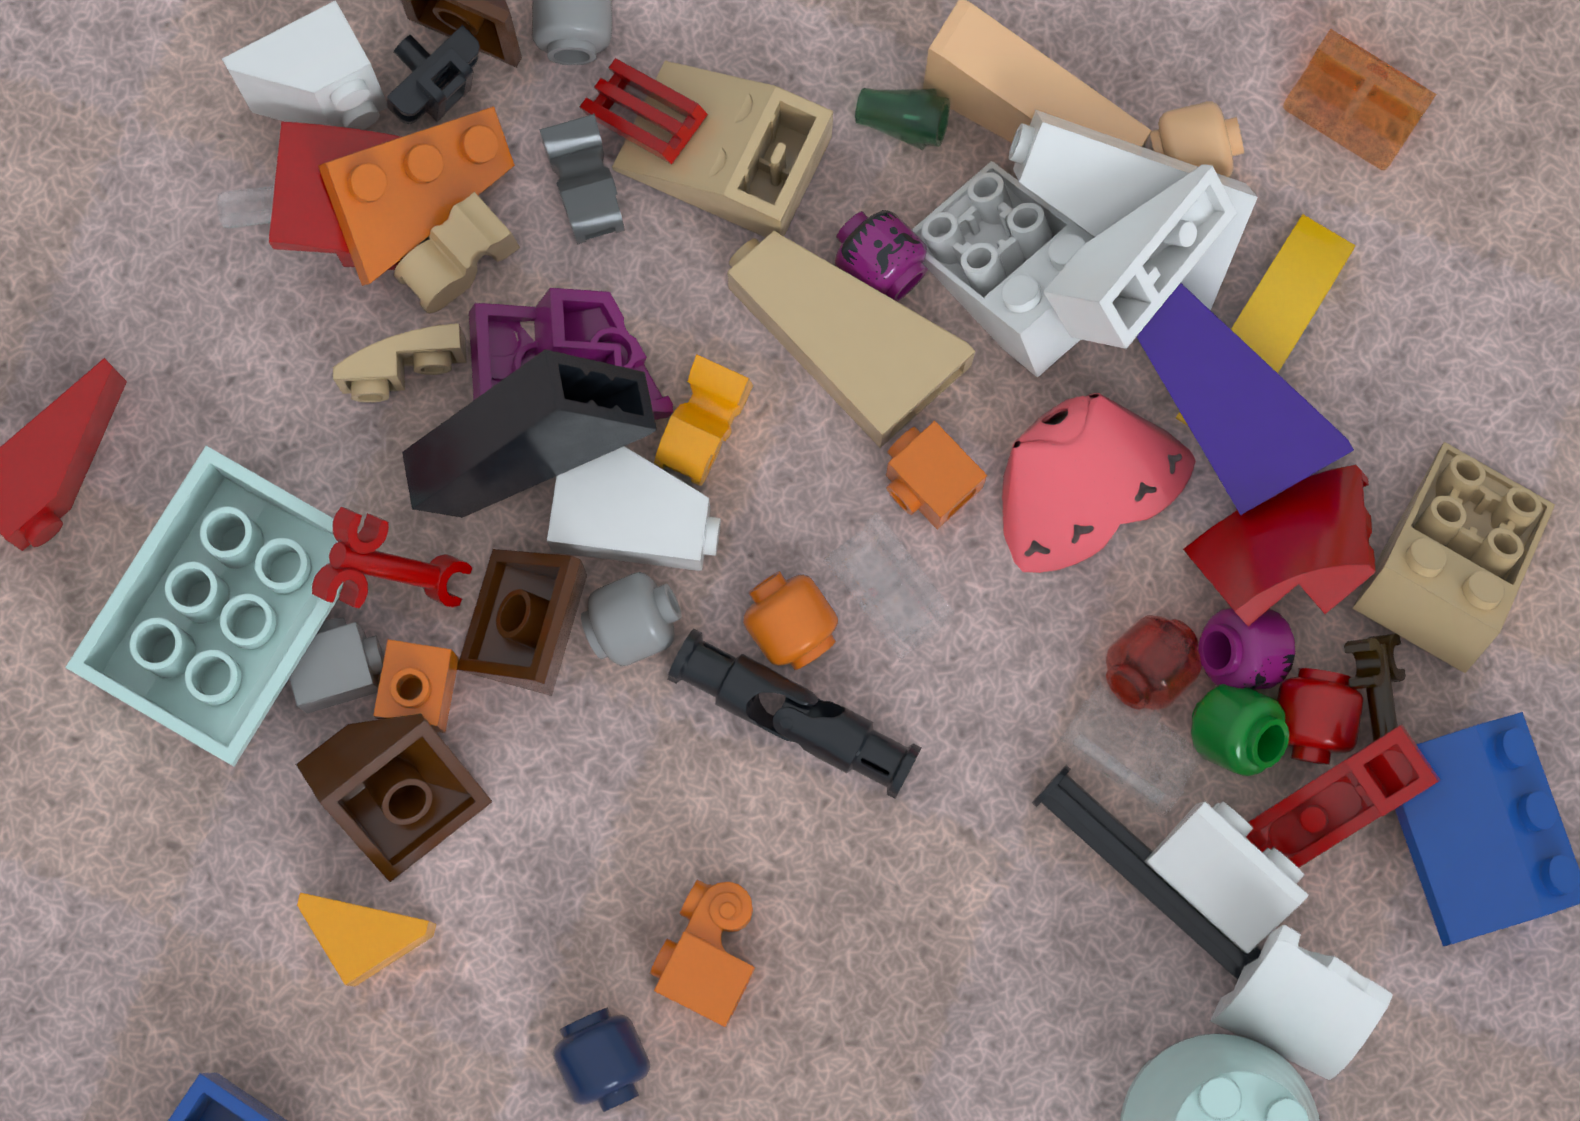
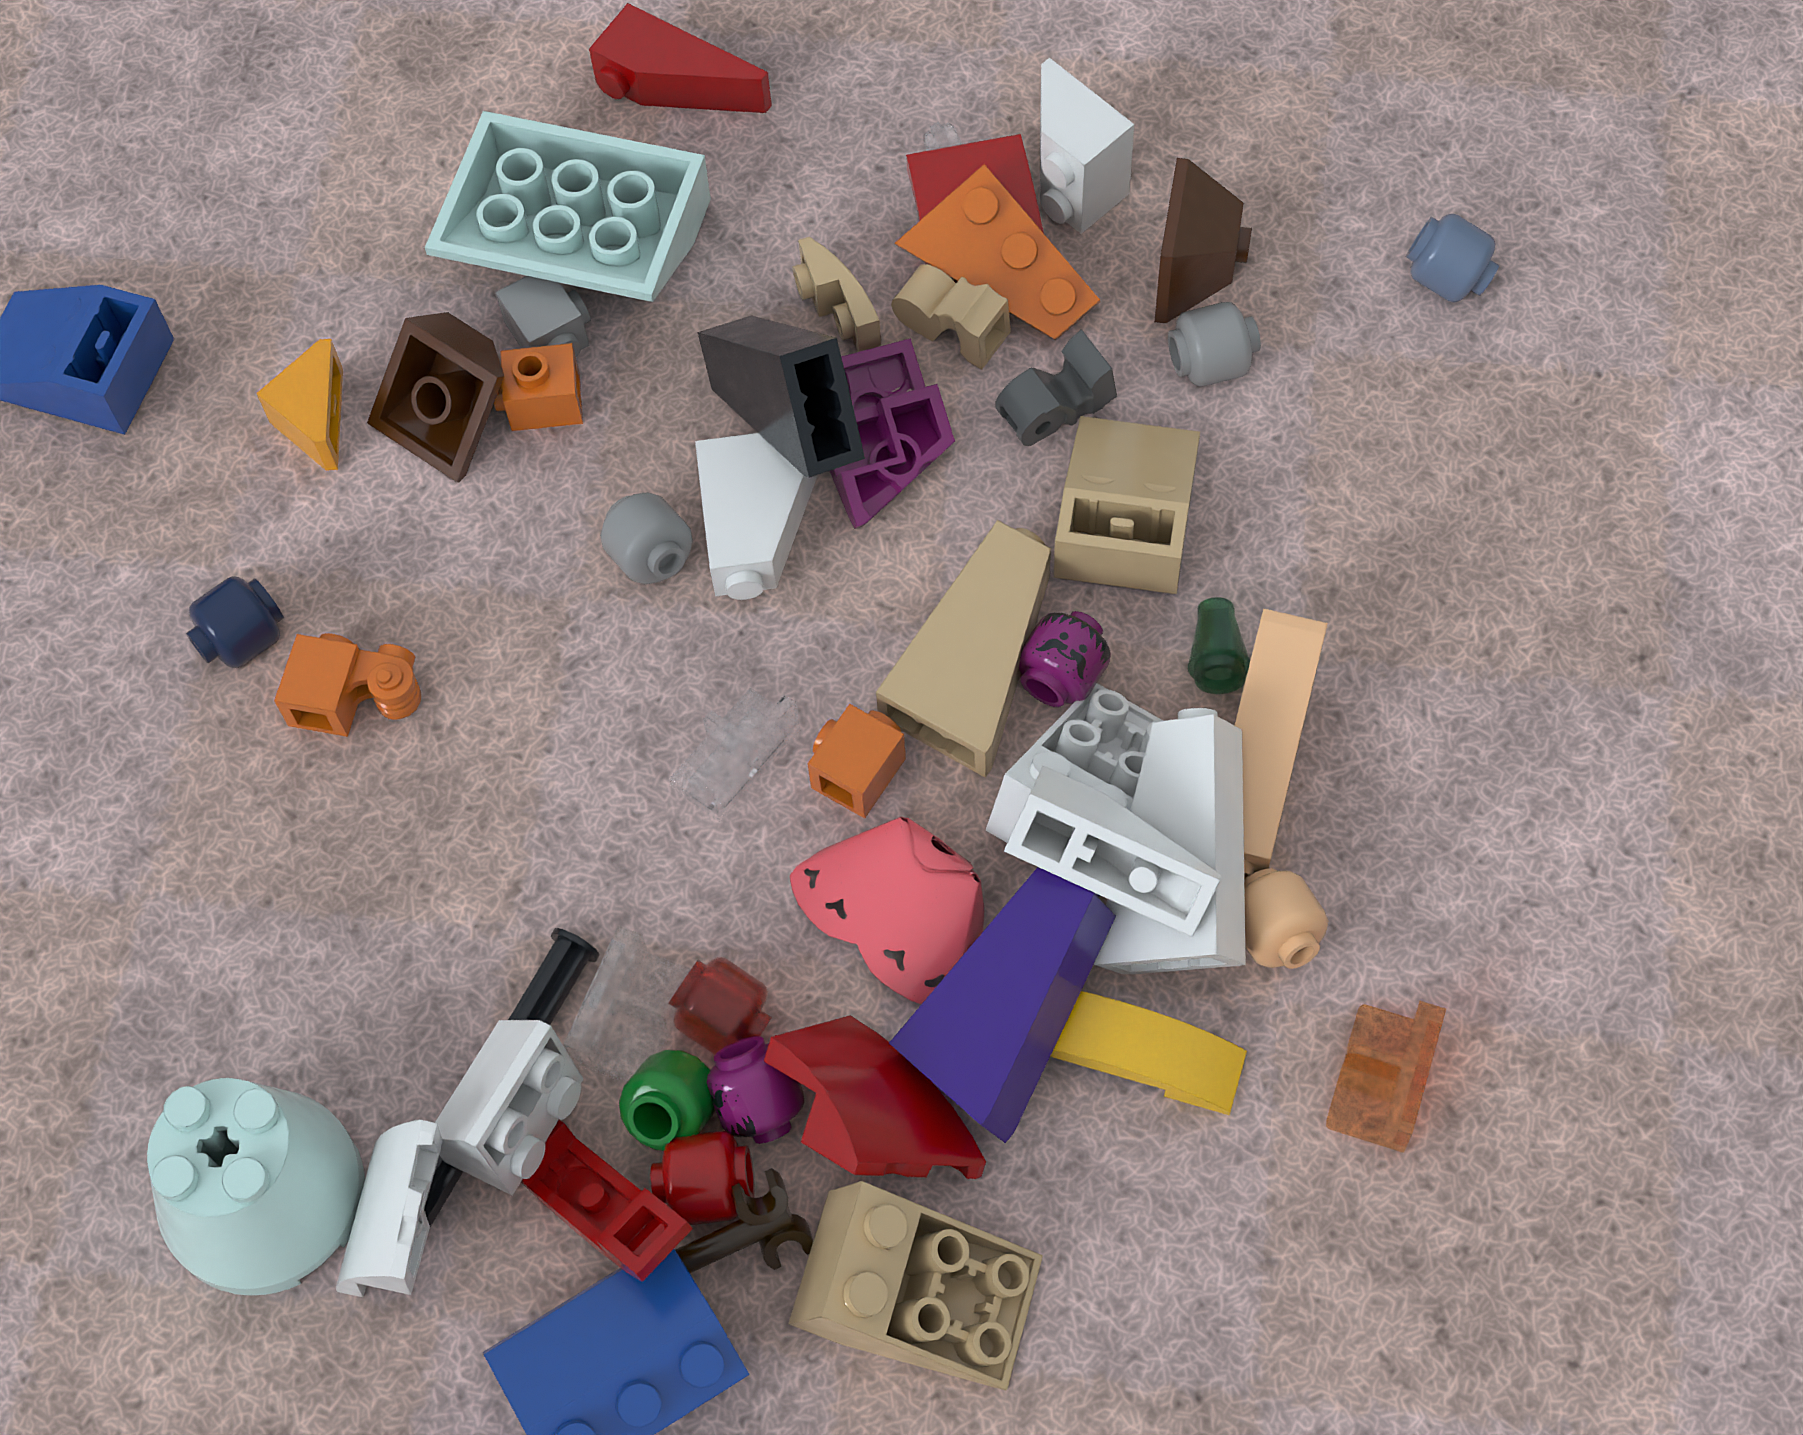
camera: 80 degrees right, 15 degrees down
(357, 555) = (630, 282): red bar -> none
(430, 73) = (1111, 245): black piece -> none
(523, 618) = (623, 459): reddish brown slope -> none
(613, 92) = (1130, 394): red tile -> none
(704, 422) = (838, 547): light orange leg -> none
(790, 620) = (679, 670): orange head -> none
(816, 725) = (605, 655): black piece -> none

